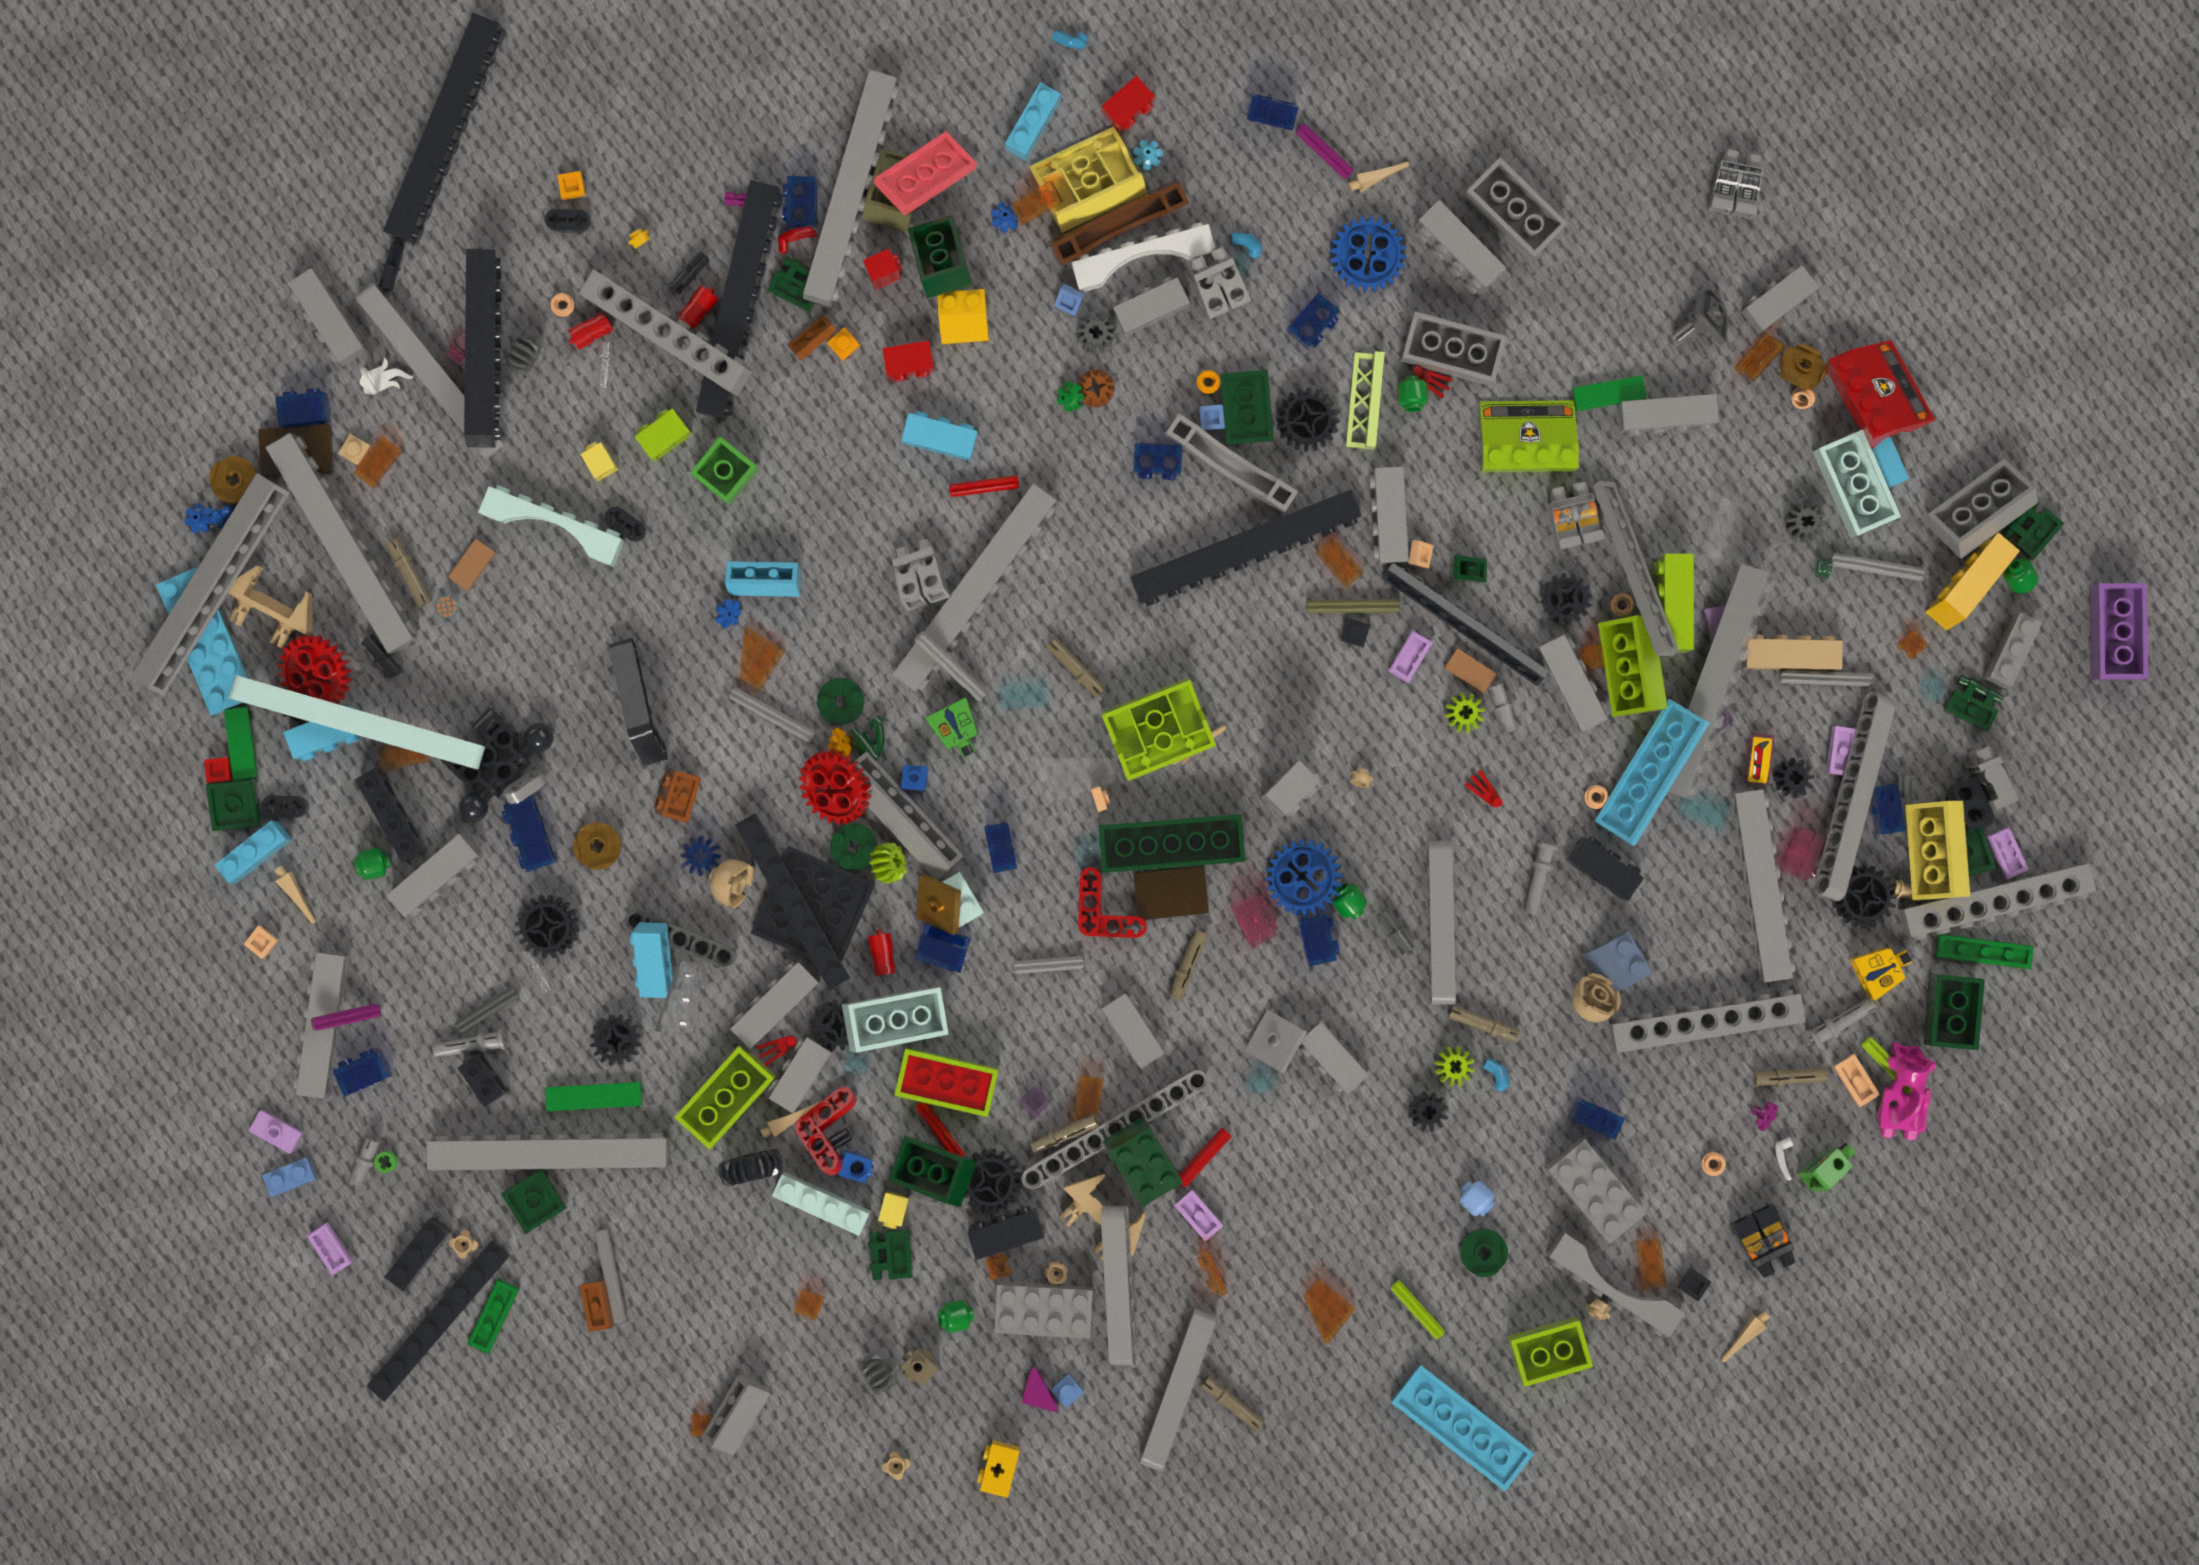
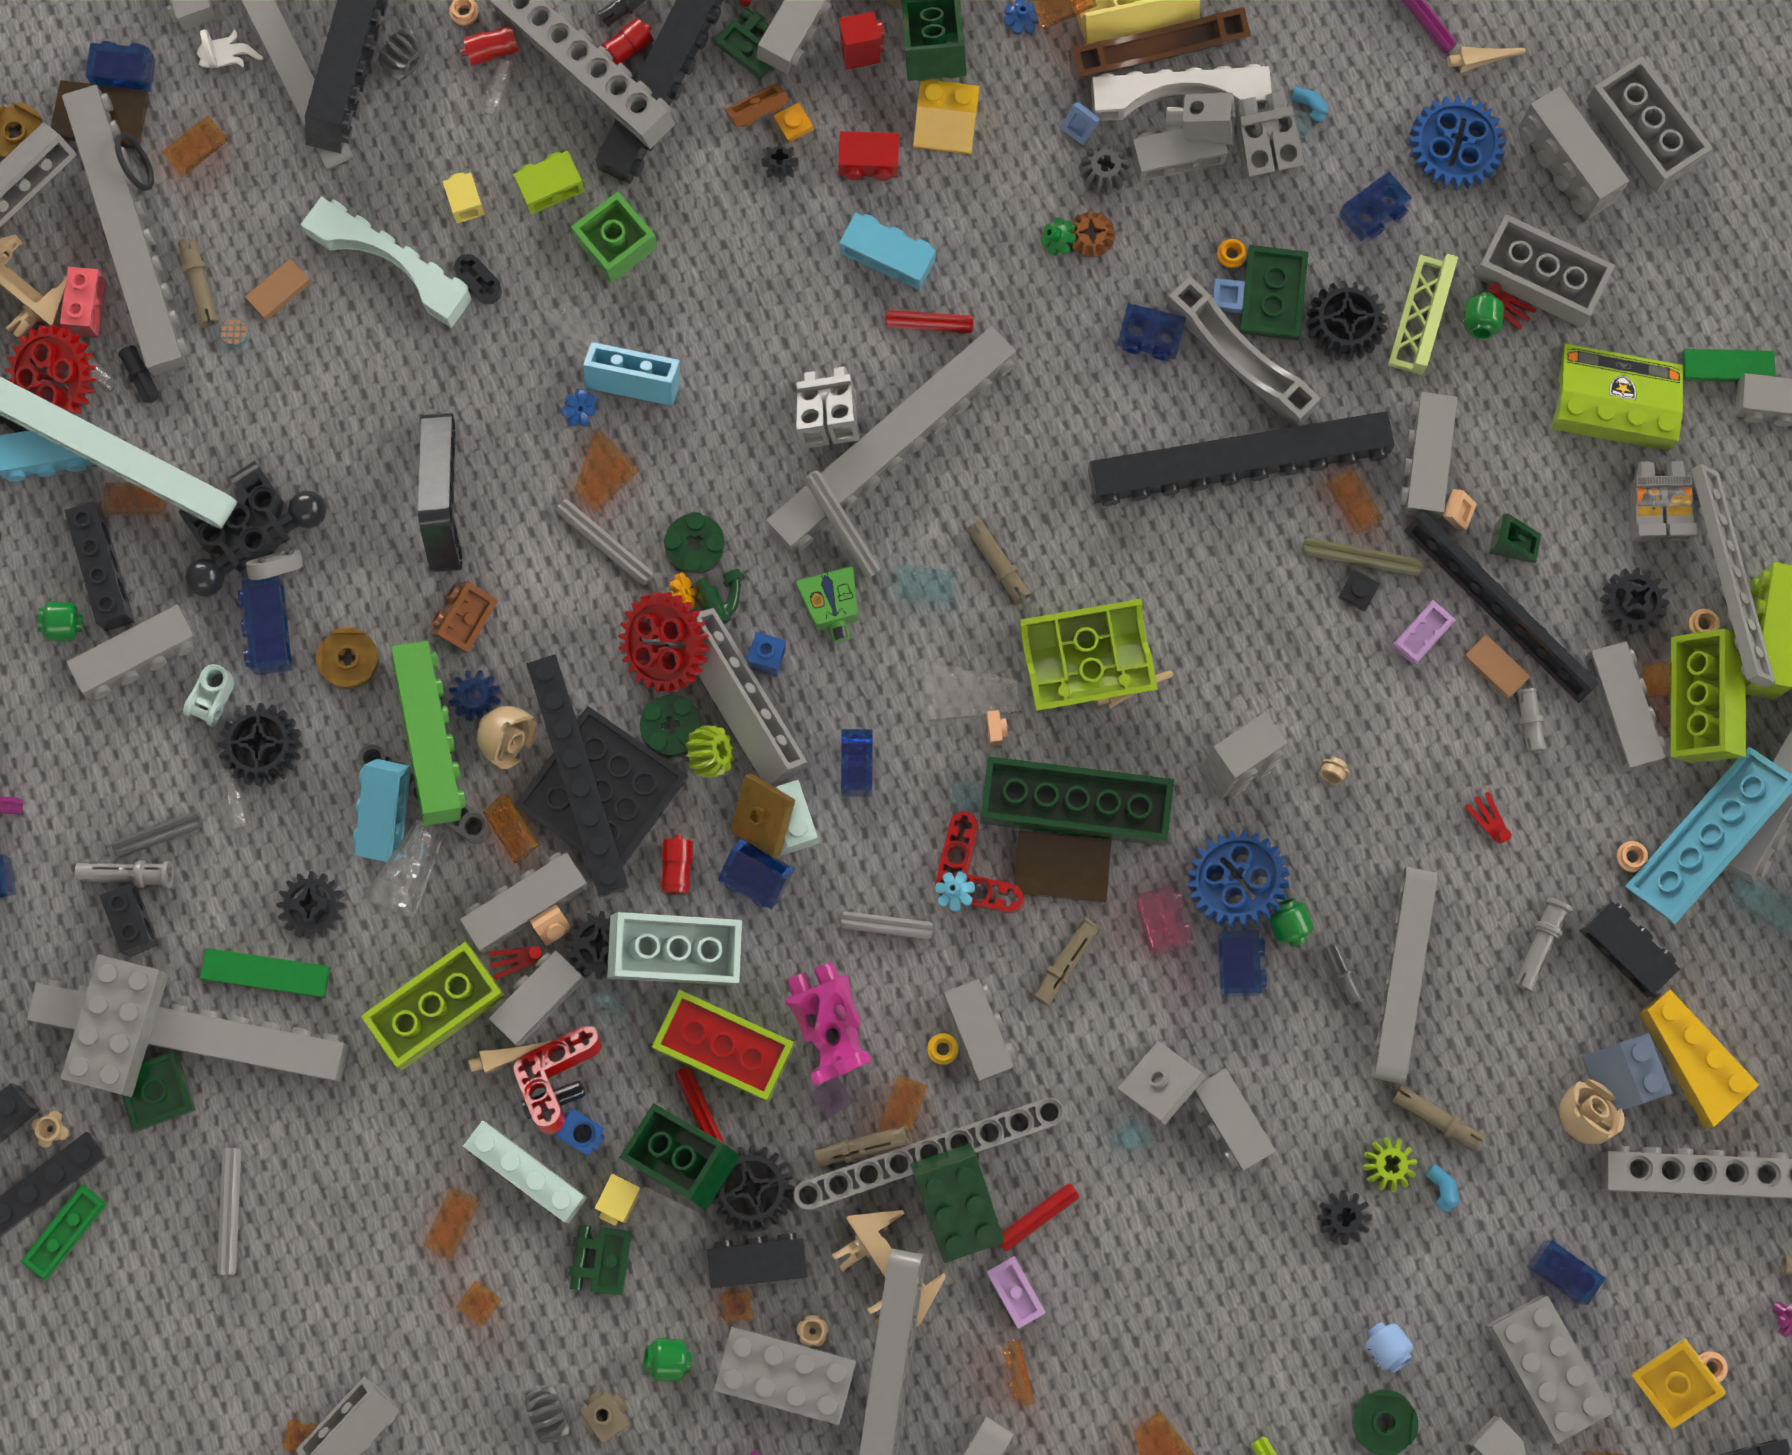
camera: 10 degrees right, 10 degrees down
(324, 608) = (83, 301): none -> coral brick
(327, 493) = (126, 170): none -> black piece
(355, 449) = (169, 126): tan plate -> none
(454, 355) = (318, 40): clear pink bush -> none
(494, 1163) = (114, 1025): none -> light grey brick
(500, 898) = (209, 697): none -> light aqua piece
(596, 1305) = (201, 1246): dark orange plate -> none
(671, 894) = (426, 733): none -> bright green brick
(750, 1167) = (444, 1103): black gear -> none
(751, 950) = (511, 828): none -> clear orange plate
(775, 1250) = (452, 1222): none -> clear orange plate
(798, 1017) = (551, 925): none -> light nougat plate
(846, 383) = (774, 155): none -> black gear
(1022, 1037) = (828, 1005): none -> dark pink hips
(1099, 930) = (959, 895): none -> medium azure plant
(1101, 1048) = (949, 1041): none -> yellow plate
(1175, 282) = (1205, 117): none -> light grey torso
(1470, 718) = (1480, 702): lime gear -> none
(1671, 945) = (1701, 1064): none -> yellow wedge
(1690, 1181) = (1678, 1383): none -> yellow plate

